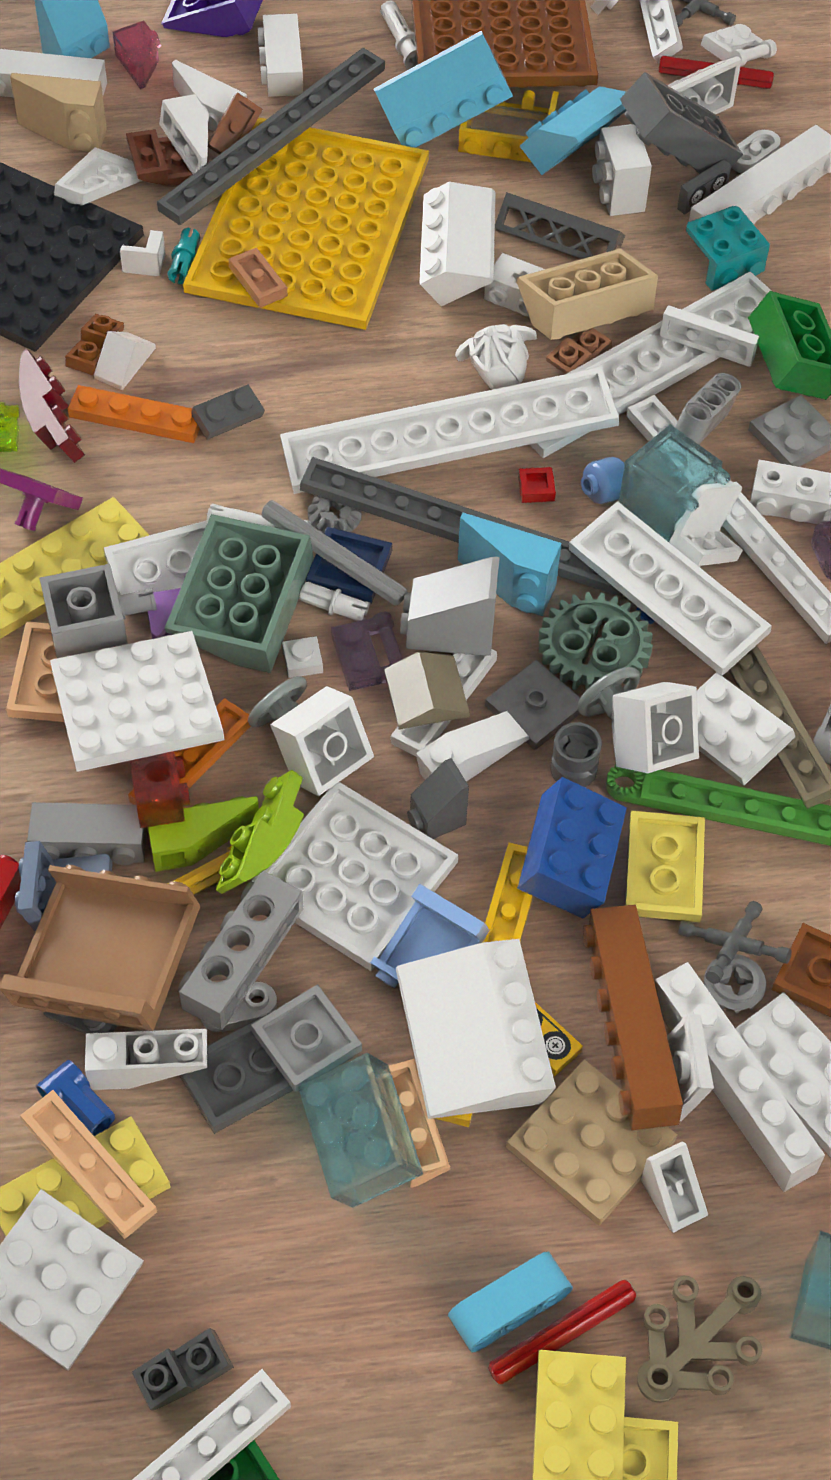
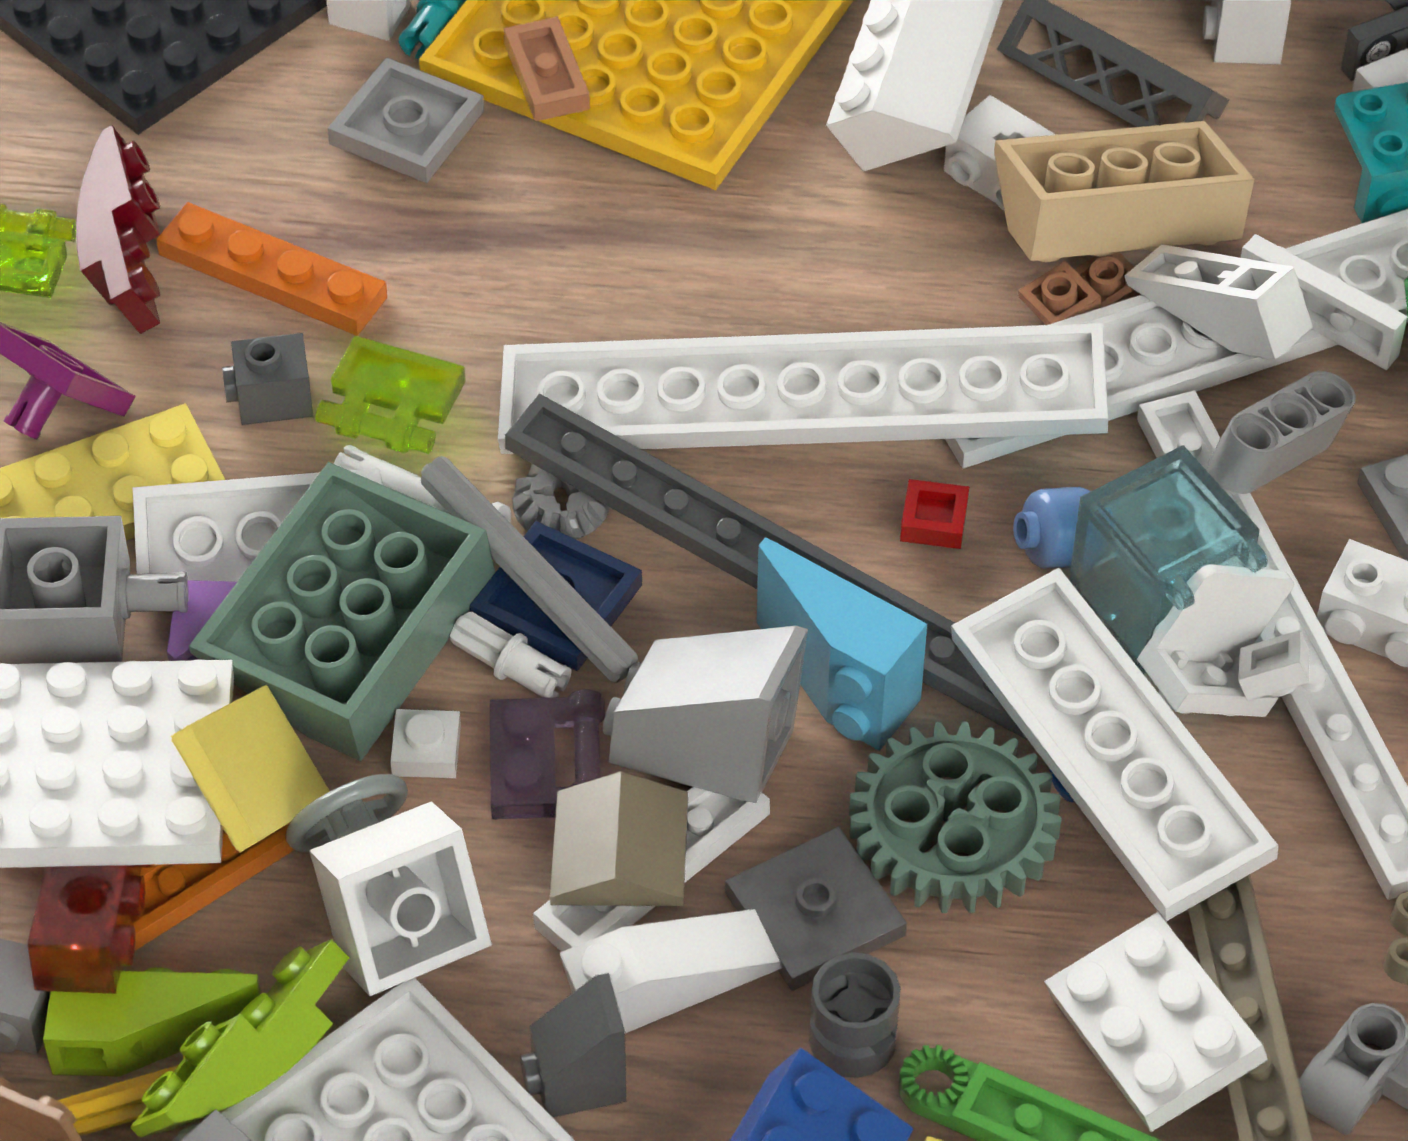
camera: 15 degrees right, 5 degrees down
(87, 351) = (244, 138): dark orange slope -> none
(121, 358) = (277, 168): white slope -> none
(156, 475) = (269, 379): none -> dark grey brick
(185, 319) = (406, 120): none -> light grey plate
(223, 686) = (250, 767): none -> light yellow tile
(226, 464) = (393, 380): none -> clear neon green plate
(227, 411) = (427, 291): dark grey plate -> none
(498, 354) = (929, 270): white piece -> none
(650, 724) = (999, 983): white piece -> none
(661, 342) = (1231, 299): none -> white slope
(740, 533) = (1274, 666): none -> white plate

